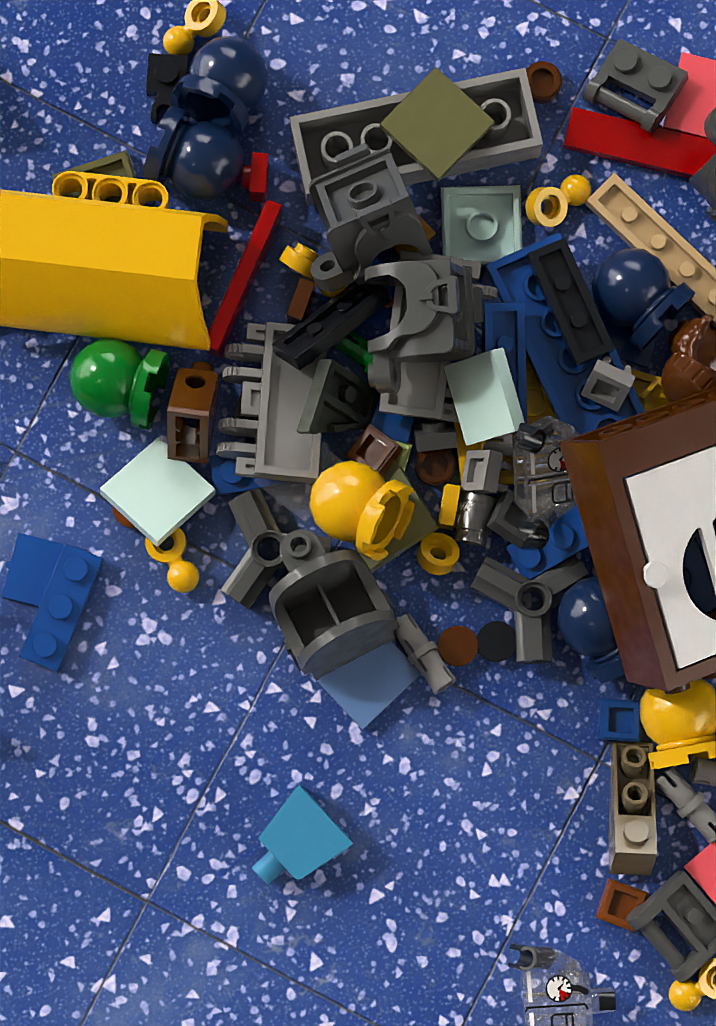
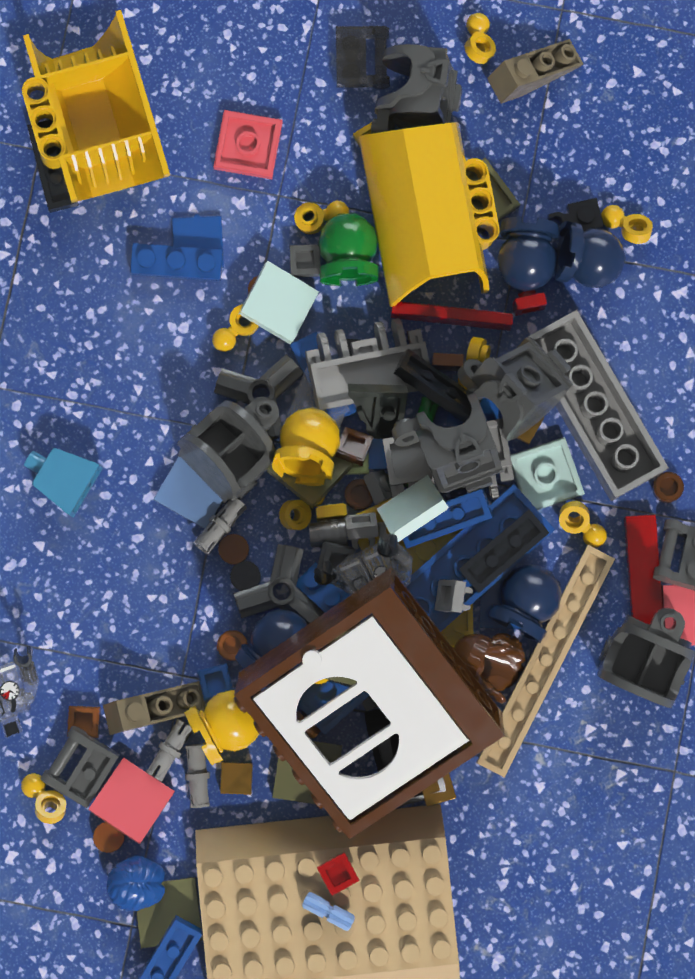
camera: 70 degrees right, 0 degrees up
(59, 386) = (320, 216): none -> yellow plate
(112, 441) = (305, 260): none -> dark grey plate
(192, 397) = (350, 308): reddish brown torso -> none
(437, 124) = (604, 416): olive tile -> none
(578, 685) = (229, 644): none -> dark orange tile

